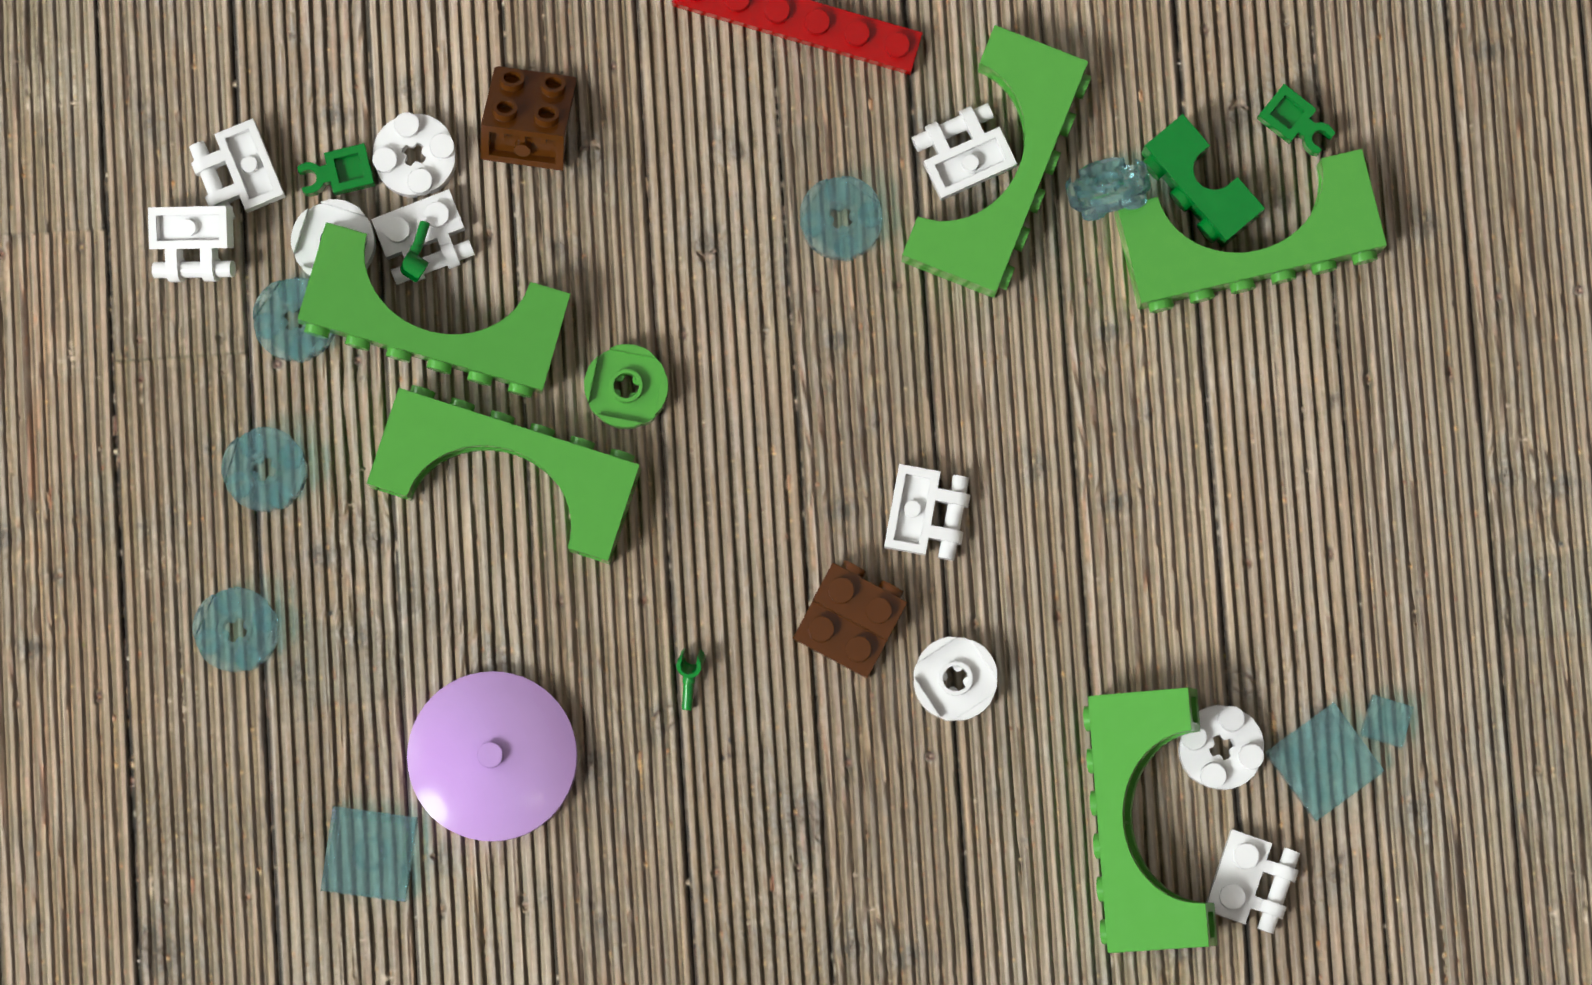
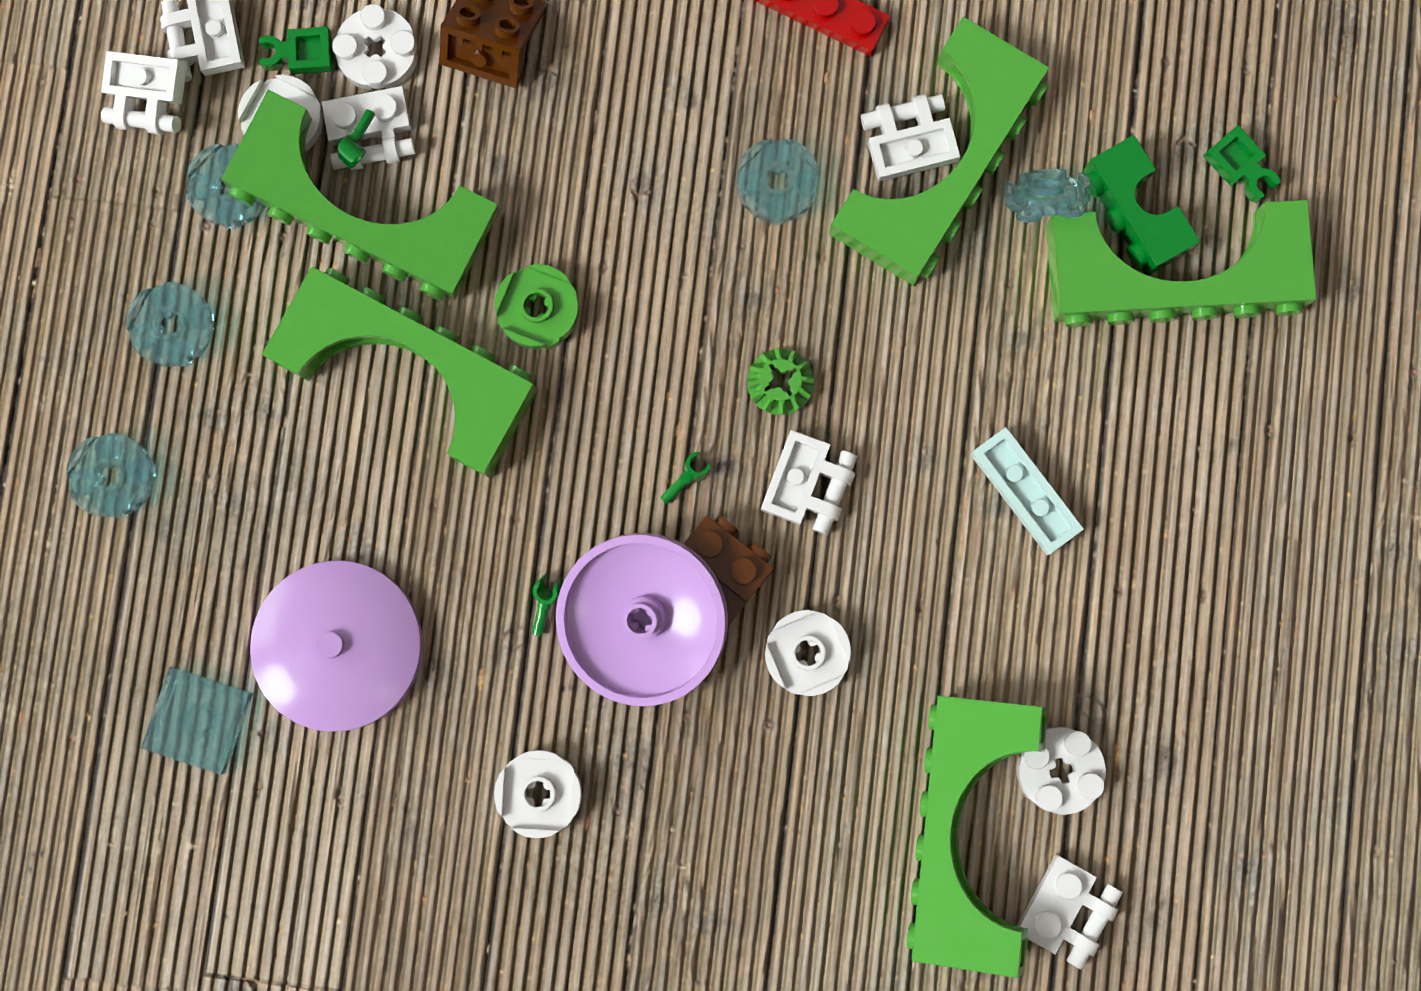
camera: 15 degrees right, 0 degrees up
(737, 878) = (519, 810): none -> white plate
(788, 675) = (641, 619): none -> lavender dish
(804, 530) = (685, 478): none -> green hand
(880, 437) = (776, 400): none -> bright green gear
(1140, 482) = (1026, 491): none -> light aqua plate
(1324, 761) = (1162, 804): clear light blue tile -> none
(1386, 721) = (1232, 774): clear light blue tile -> none

